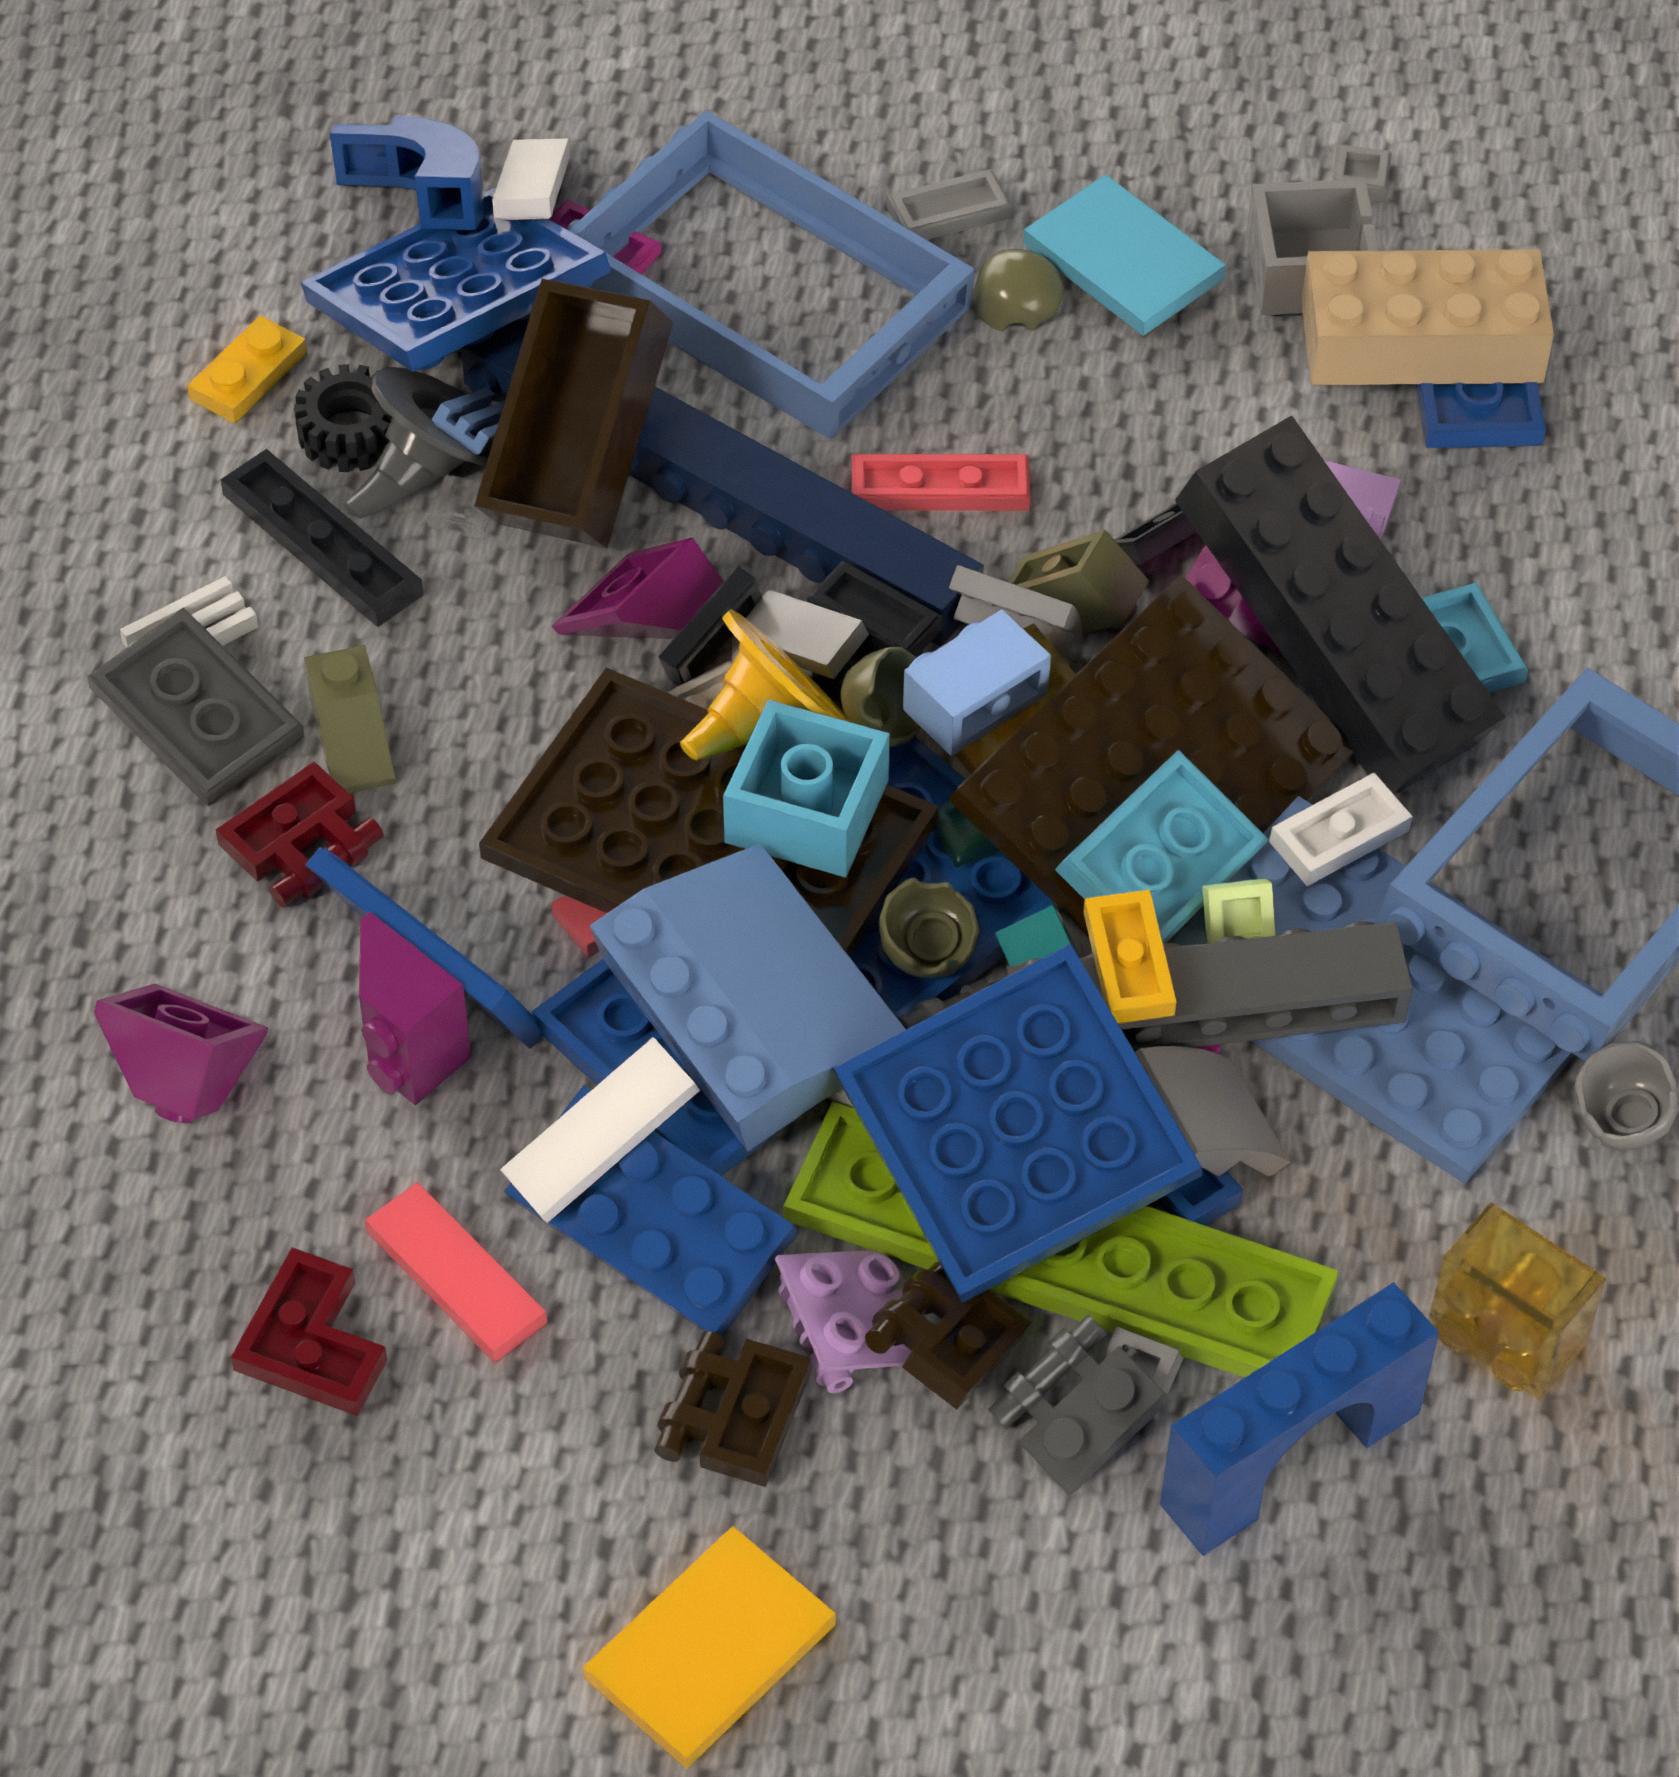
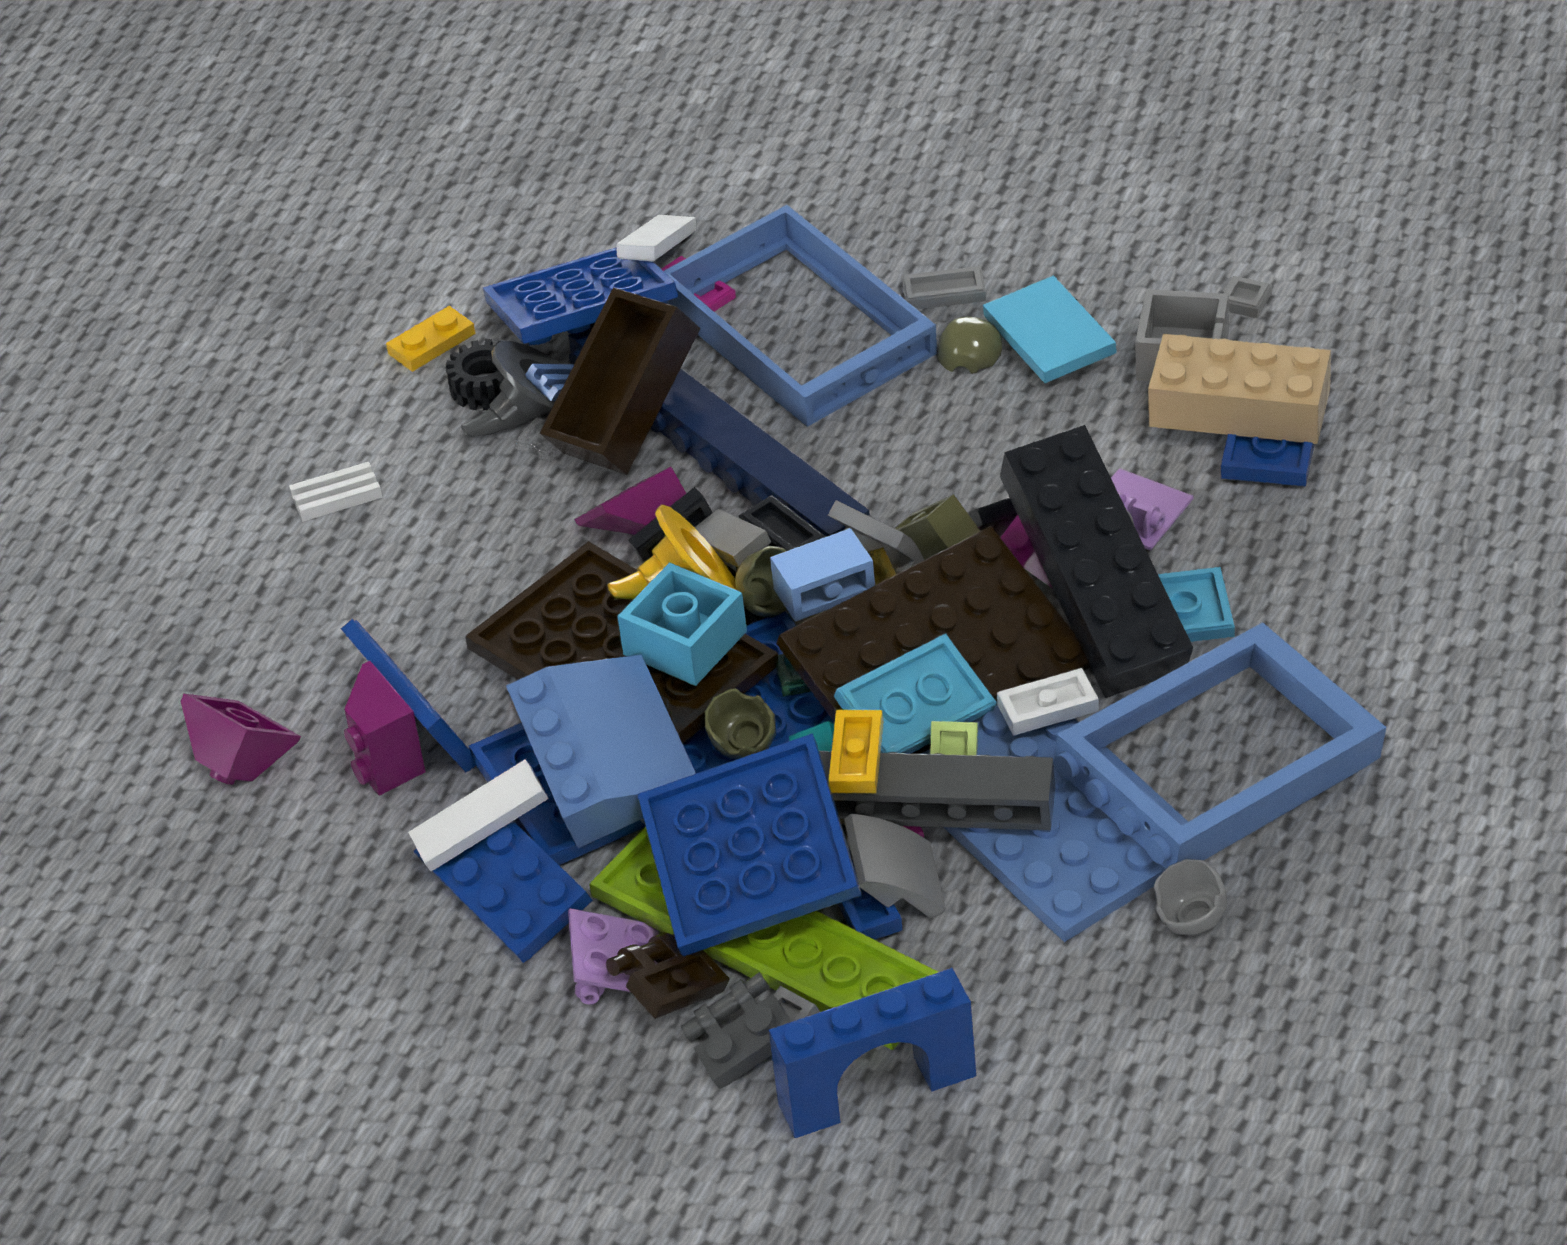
camera: 20 degrees right, 10 degrees down
(195, 706) = (321, 537): dark grey tile -> none
(288, 821) = (369, 605): dark red plate -> none
(294, 1339) = (251, 920): dark red plate -> none
(322, 537) = (440, 446): black plate -> none
(349, 719) = (415, 556): olive slope -> none
(419, 156) = (585, 217): blue arch -> none
(456, 1272) = (367, 895): coral tile -> none
(709, 1646) = (448, 1137): yellow tile -> none
(753, 1413) = (524, 1006): dark brown plate -> none
(943, 481) = (871, 460): coral tile -> none
(1515, 1302) = (1053, 1008): clear yellow brick -> none

